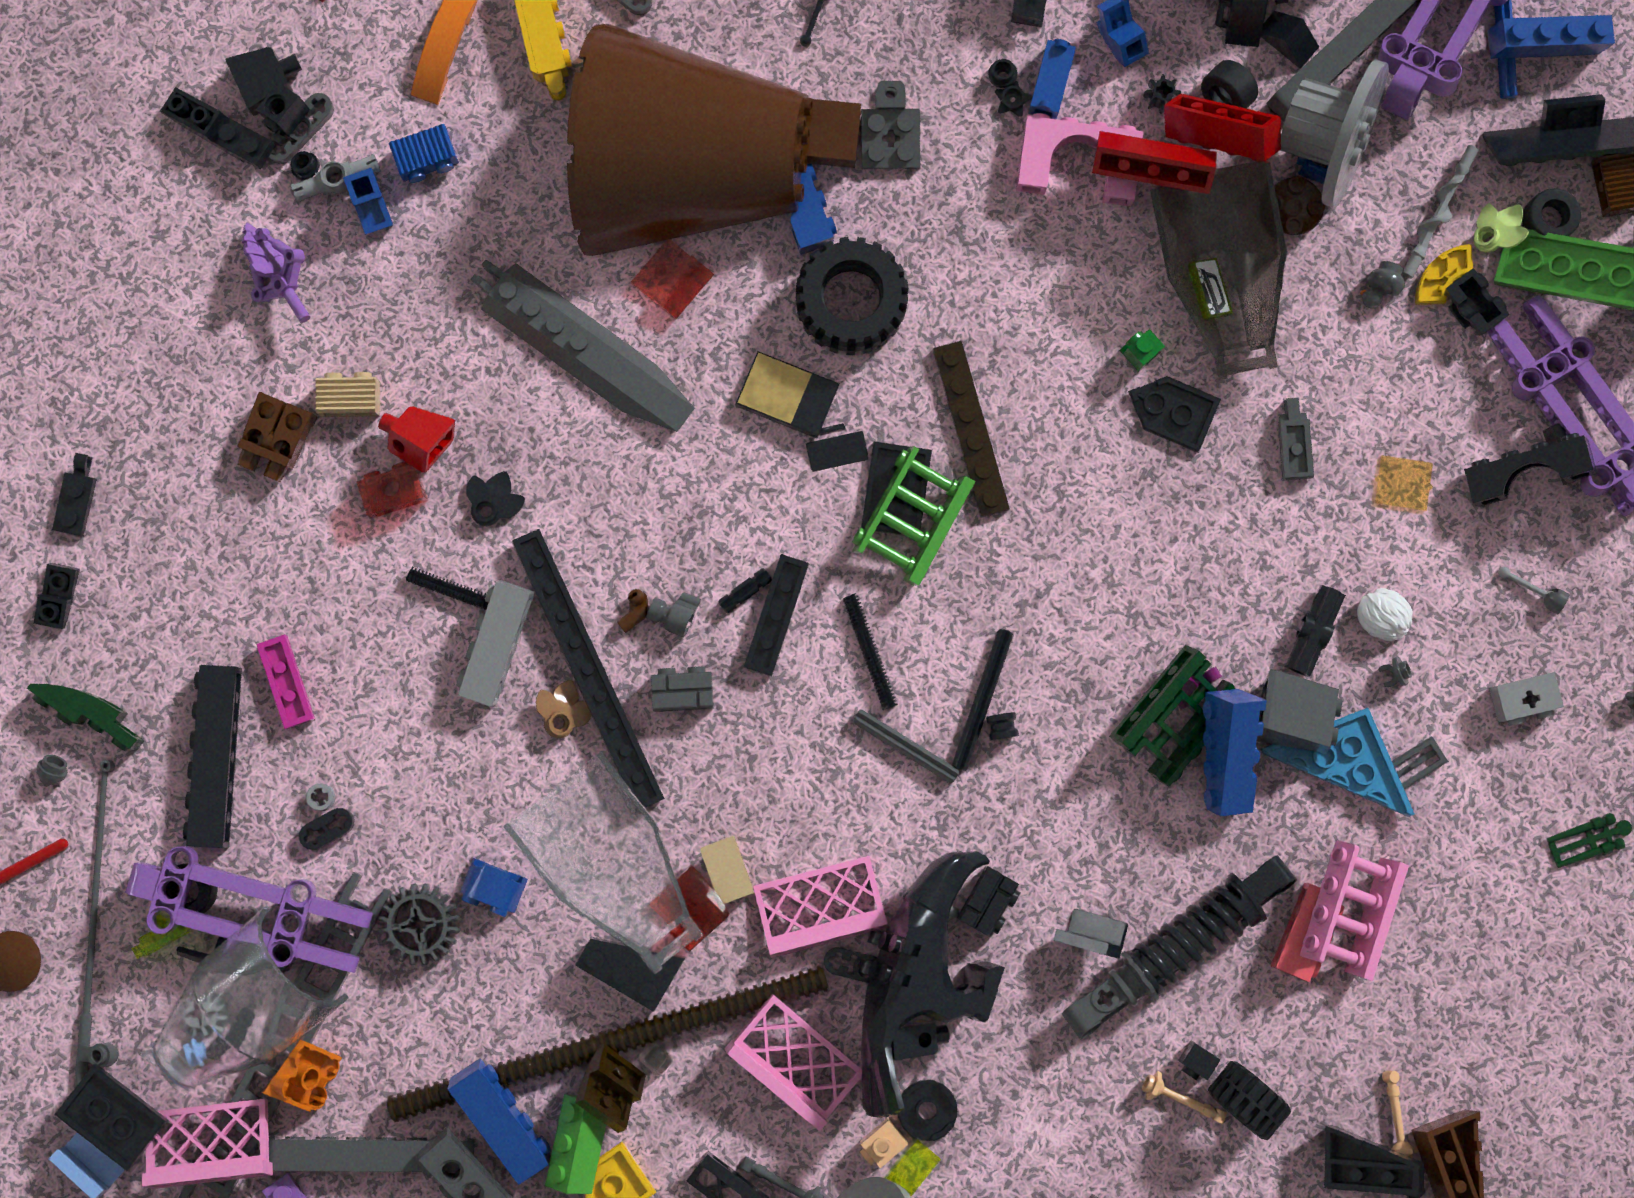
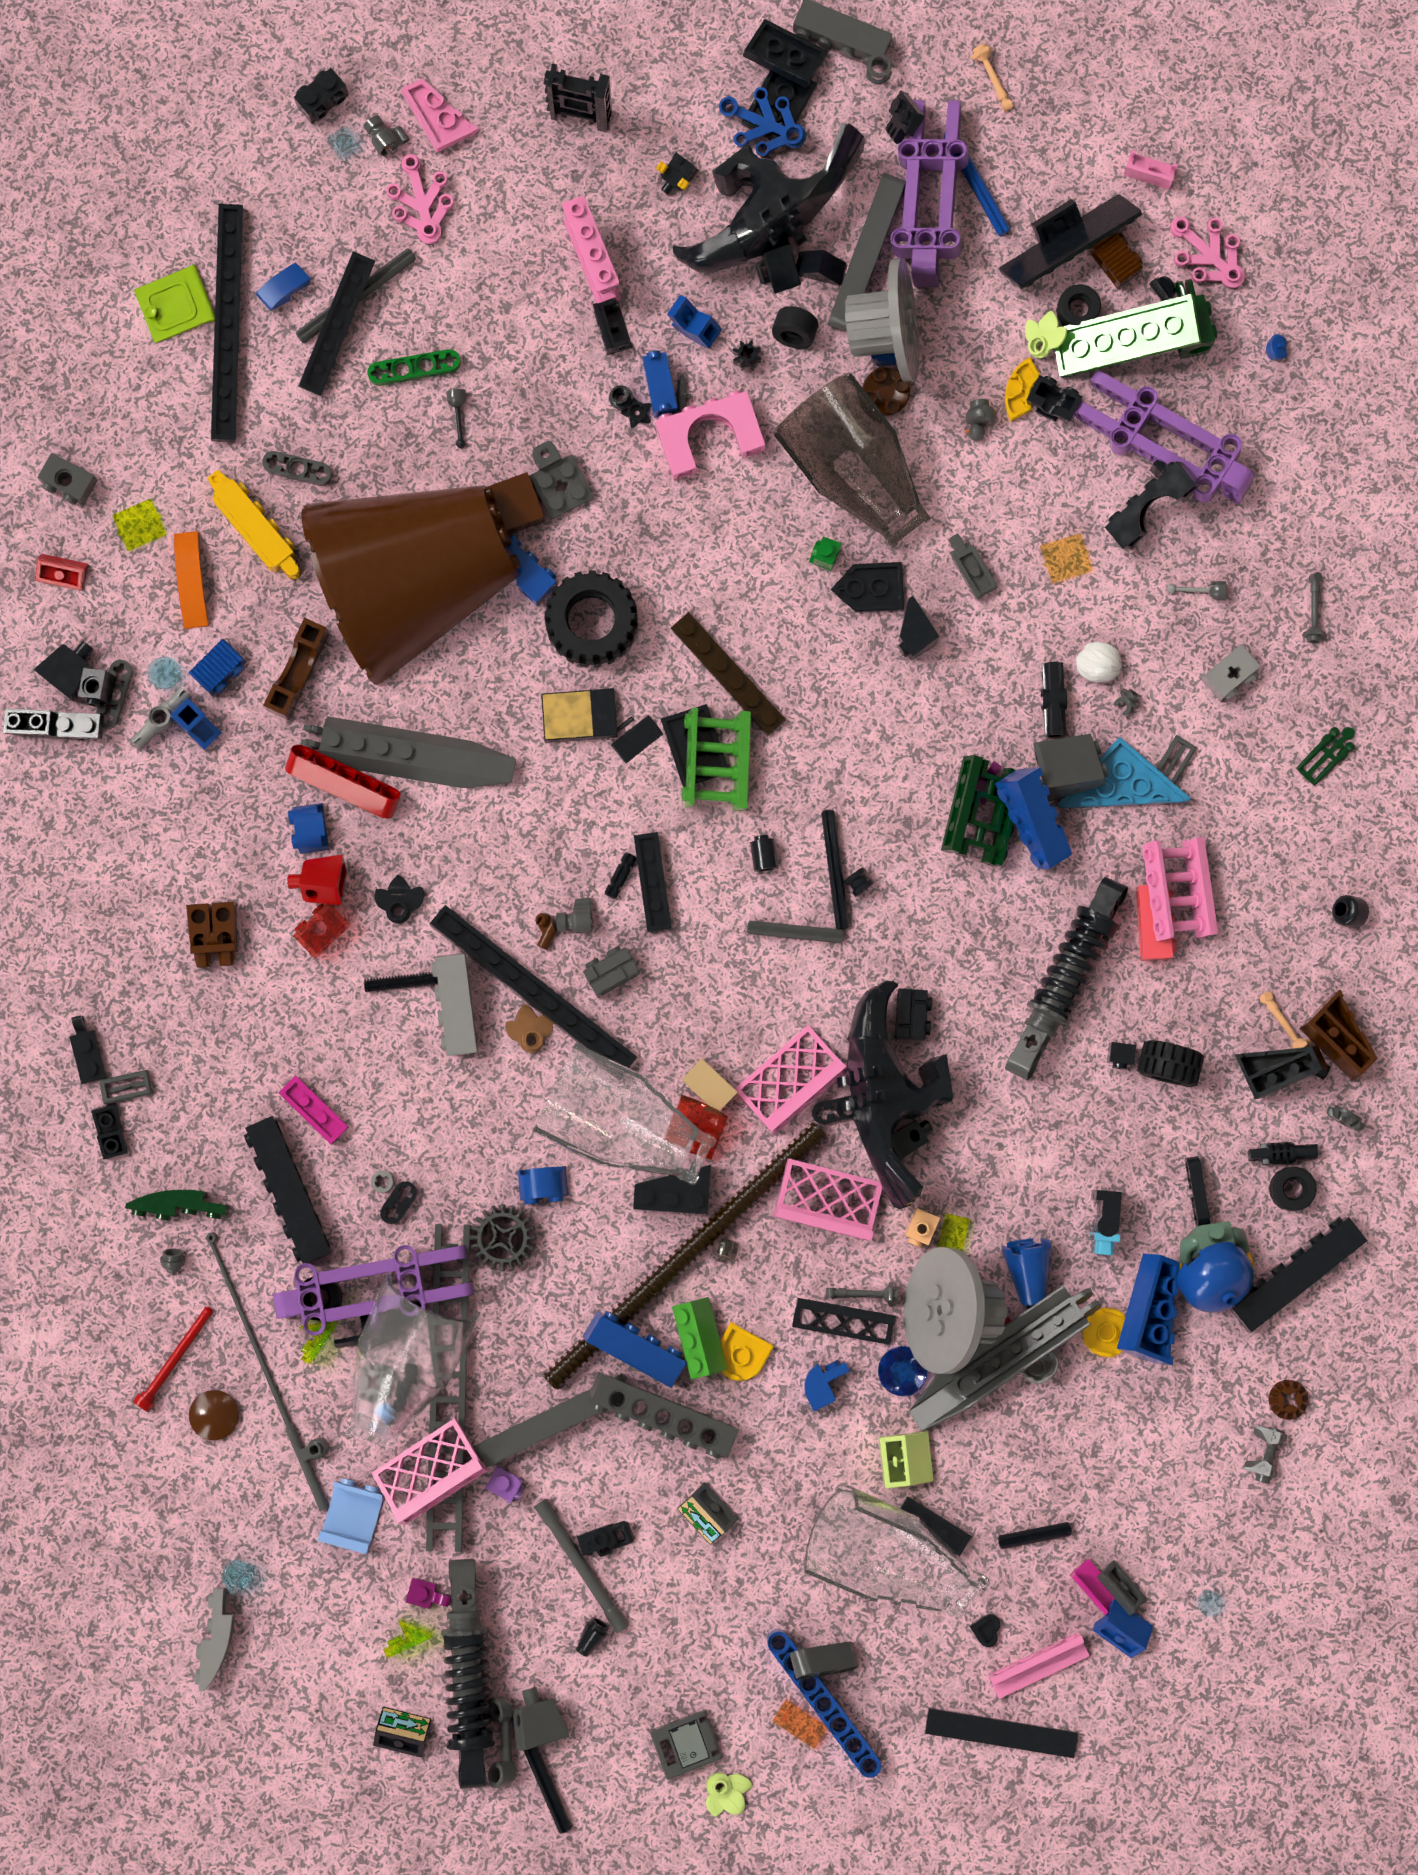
camera: 25 degrees left, 0 degrees up
(111, 1117) = (349, 1487): black tile -> none
(123, 562) = (147, 1083): none -> dark grey tile
(277, 261) = (143, 806): medium lavender bar -> none
(301, 160) = (128, 716): black plate -> none
(304, 1077) = (474, 1389): orange slope -> none
(347, 395) = (252, 876): tan brick -> none
(364, 131) = (164, 672): none -> clear light blue piece
(434, 374) = (309, 828): none -> blue cylinder
(486, 213) = (304, 655): none -> reddish brown arch
(495, 341) = (342, 781): none -> beam
(610, 1088) = (703, 1285): dark brown slope -> none
(672, 278) = (450, 670): clear red slope -> none
(869, 652) = (735, 877): black axle -> none
(913, 644) = (763, 853): none -> black brick
(943, 1120) = (956, 1193): black tile -> none
(1071, 101) = (682, 393): none -> dark grey helmet
(1094, 933) = (1000, 999): panel -> none
(1154, 162) = (766, 411): red brick -> none
(1154, 1087) = (1099, 1088): light nougat piece -> none
(1200, 483) = (917, 632): none -> black slope
(1209, 288) = (853, 484): tile -> none
(1222, 127) = (804, 360): red brick -> none
(1442, 215) = (998, 344): light grey piece -> none
(1532, 1028) = (1350, 911): none -> black head
(1550, 36) = (1013, 174): blue brick -> none

